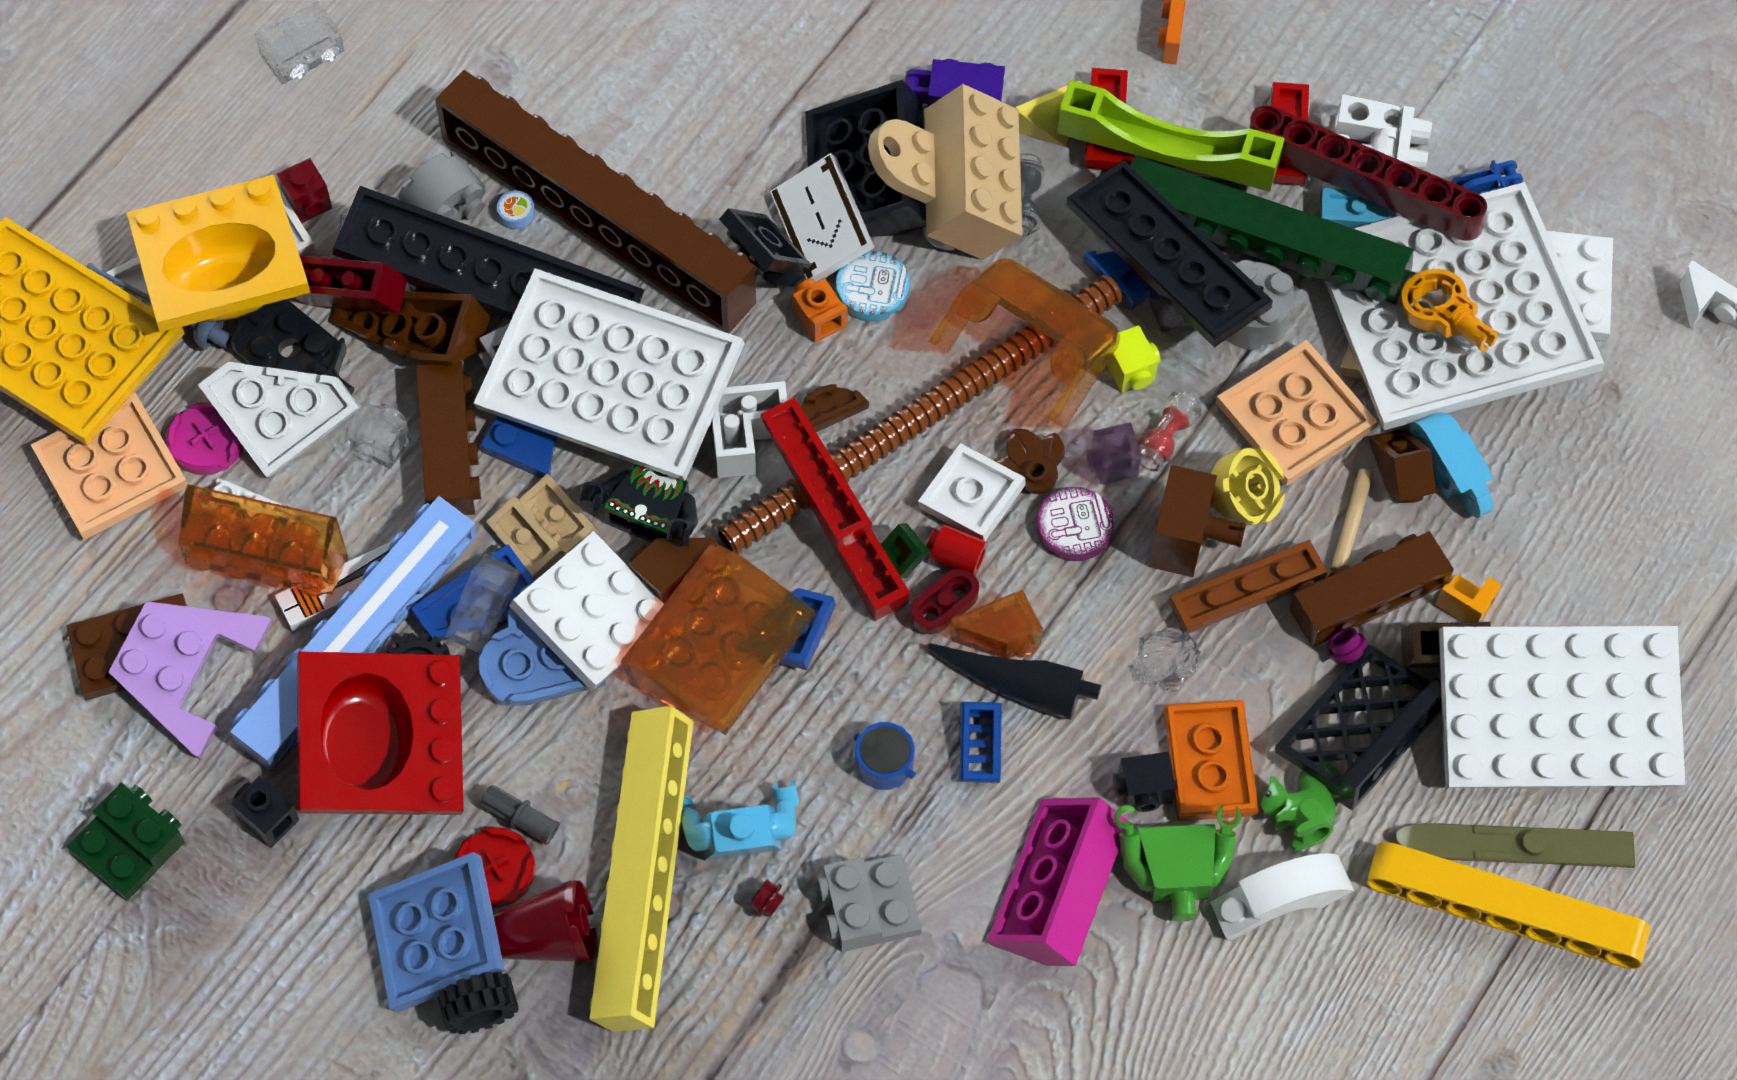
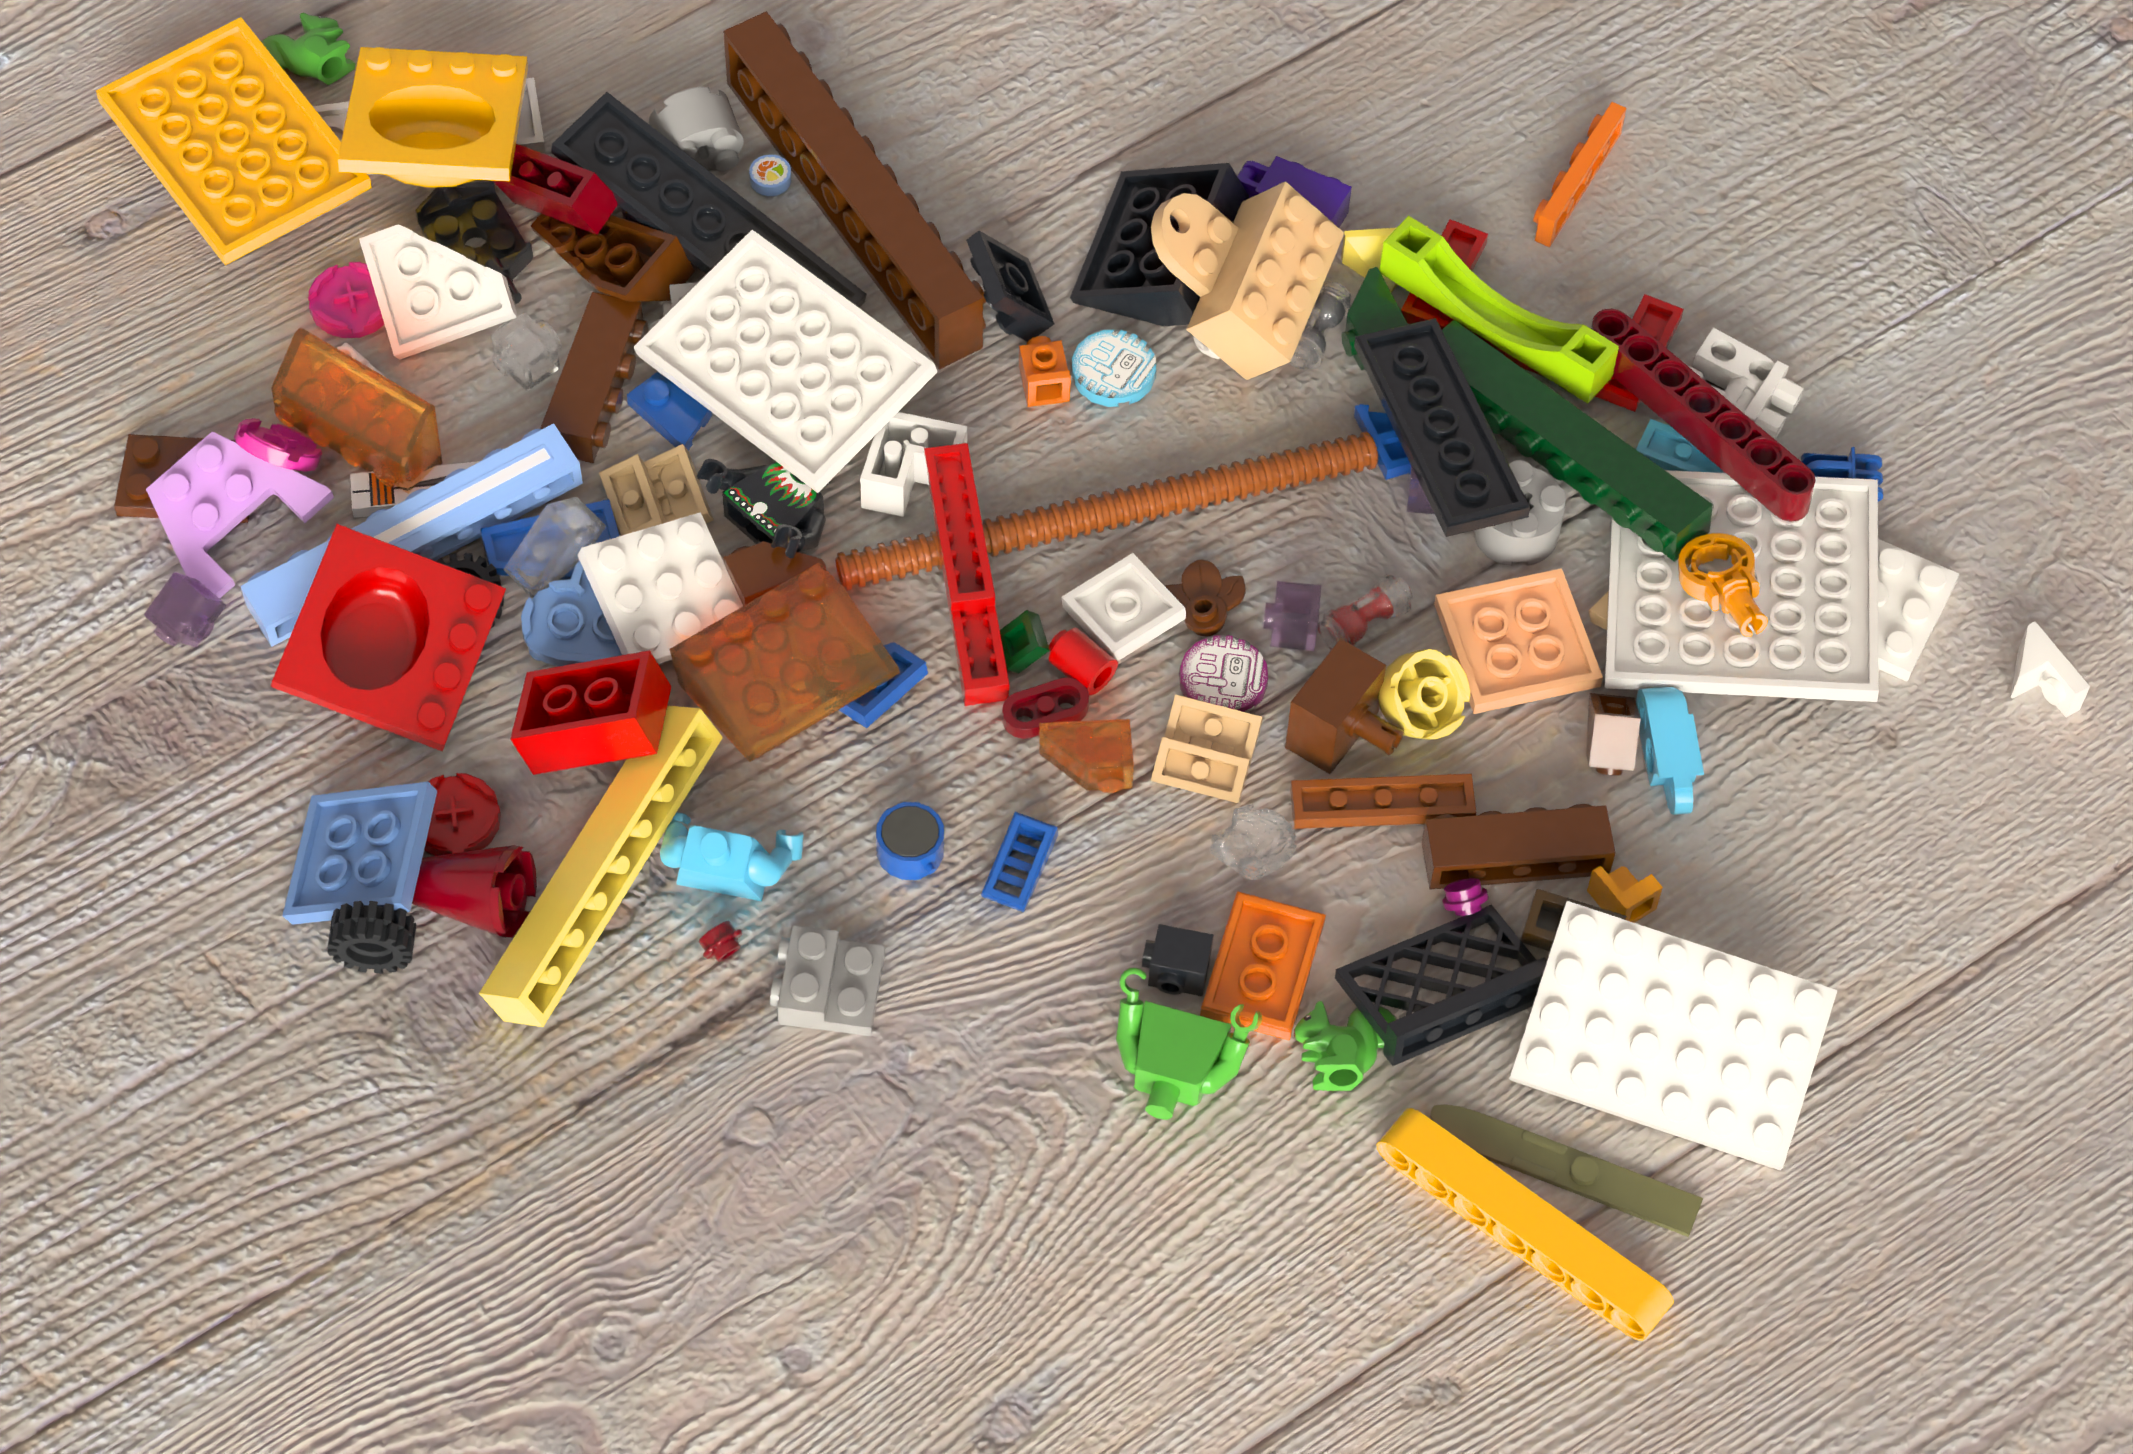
camera: 20 degrees right, 5 degrees down
(78, 226) = (315, 52): none -> bright green animal
(113, 475) = (240, 304): light nougat plate -> none
(127, 840) = (95, 662): dark green plate -> none
(188, 769) = (184, 611): none -> clear purple brick
(204, 332) = (395, 195): sand blue sword -> none
(205, 592) = (278, 445): none -> dark pink tile
(264, 811) = (243, 679): black brick -> none
(305, 190) = (558, 87): dark red brick -> none
(520, 814) = (503, 771): dark grey axle -> none
(580, 740) = (591, 712): none -> red brick
(822, 218) = (1087, 280): white tile -> none
(831, 405) = (1011, 472): reddish brown plate -> none
(1032, 682) = (1103, 820): black piece -> none
(1058, 881) = (1038, 1029): dark pink slope -> none
(1066, 173) = (1370, 312): none -> dark green slope
(1083, 335) = (1305, 480): clear orange windscreen -> none
(1089, 591) = (1207, 749): none -> tan slope
(1134, 361) = (1359, 527): neon yellow brick -> none
(1280, 889) = (1277, 1116): white arch -> none
(1352, 519) = (1534, 768): tan bar -> none

